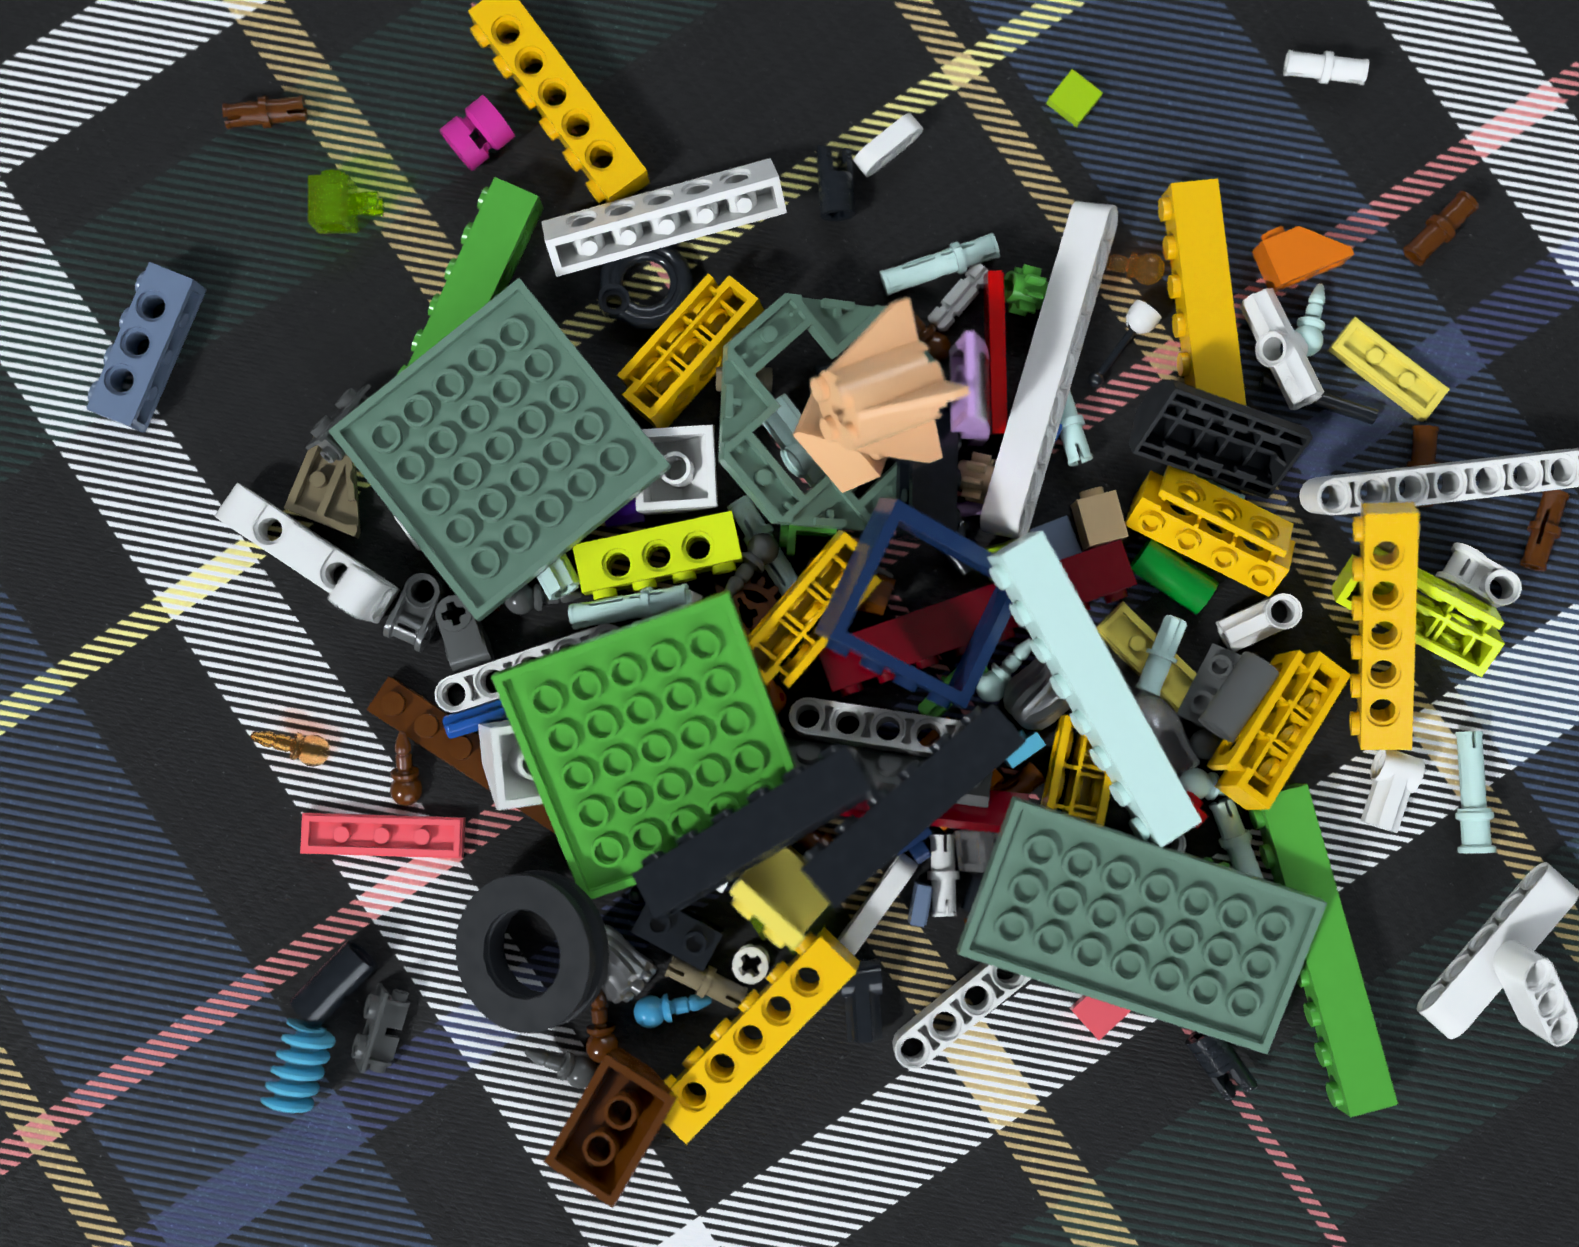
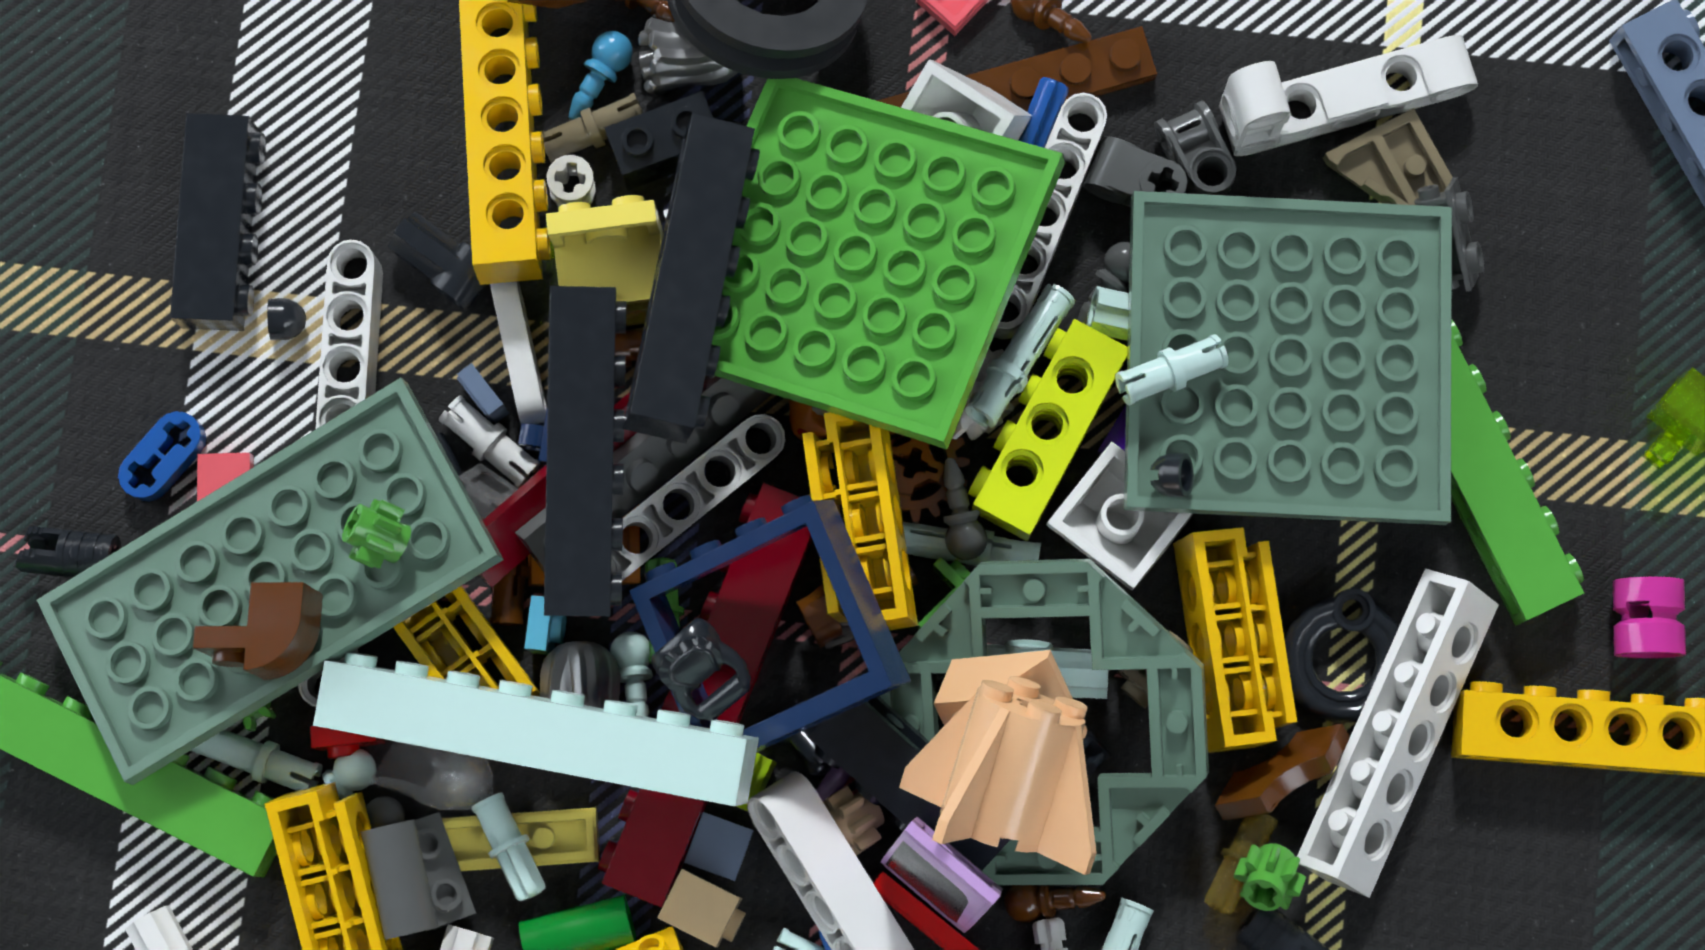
camera: 135 degrees right, 5 degrees down
(567, 504) = (1171, 369): none -> light aqua pin
(628, 450) = (1174, 475): none -> black hinge
(757, 265) = (1263, 786): none -> reddish brown tile
(808, 217) = (1269, 877): none -> bright green gear
(811, 246) = (1225, 890): none -> clear yellow axle
(955, 1156) = (216, 222): none -> black brick
(976, 634) = (691, 660): none -> black piece
(976, 1062) = (284, 318): none -> black hinge
(1066, 880) = (376, 533): none -> bright green gear
(1116, 1050) = (153, 447): none -> blue beam
(1172, 886) = (278, 632): none -> reddish brown brick

